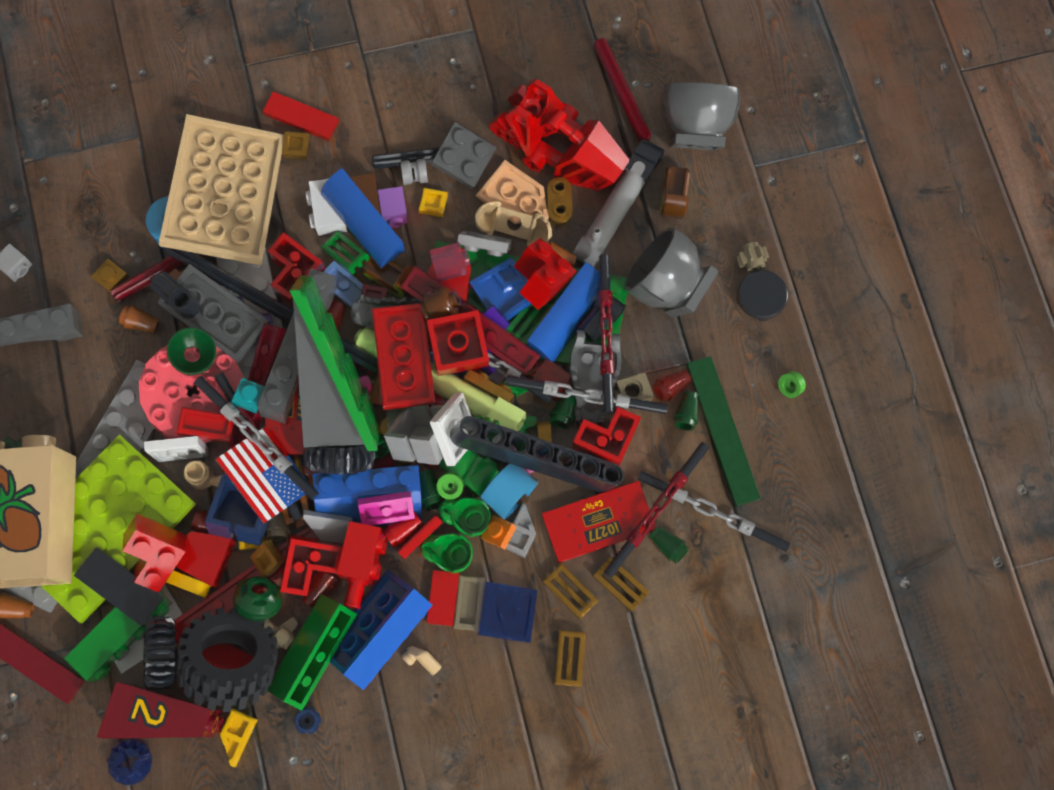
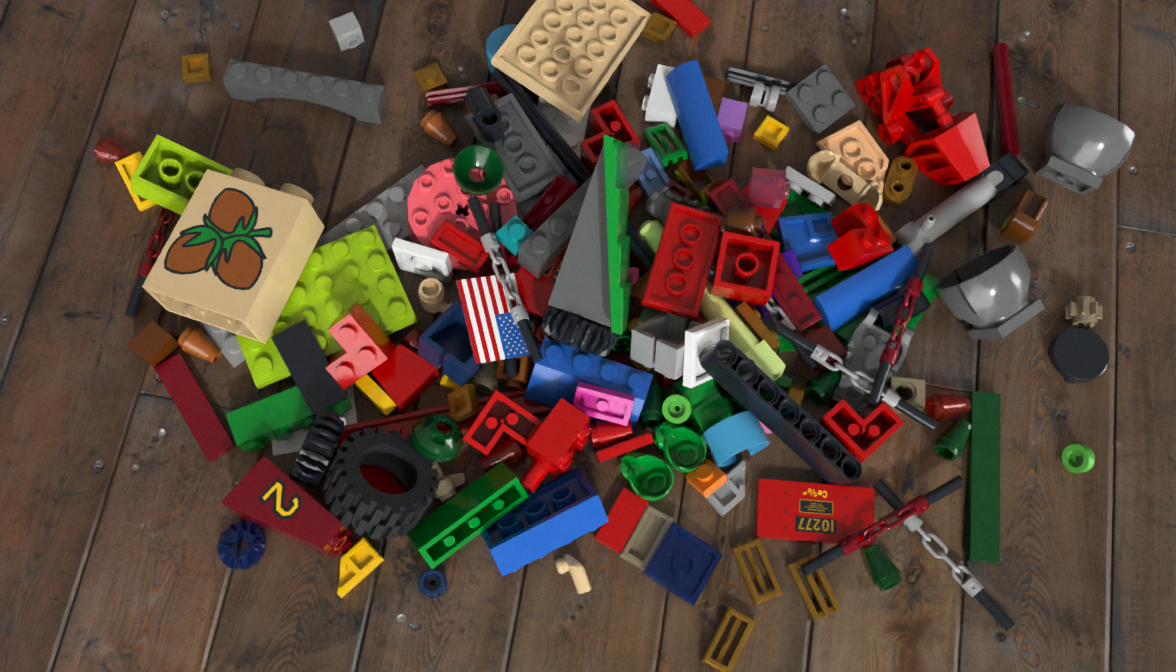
camera: 25 degrees right, 5 degrees down
(327, 526) = (536, 396): light grey tile -> none

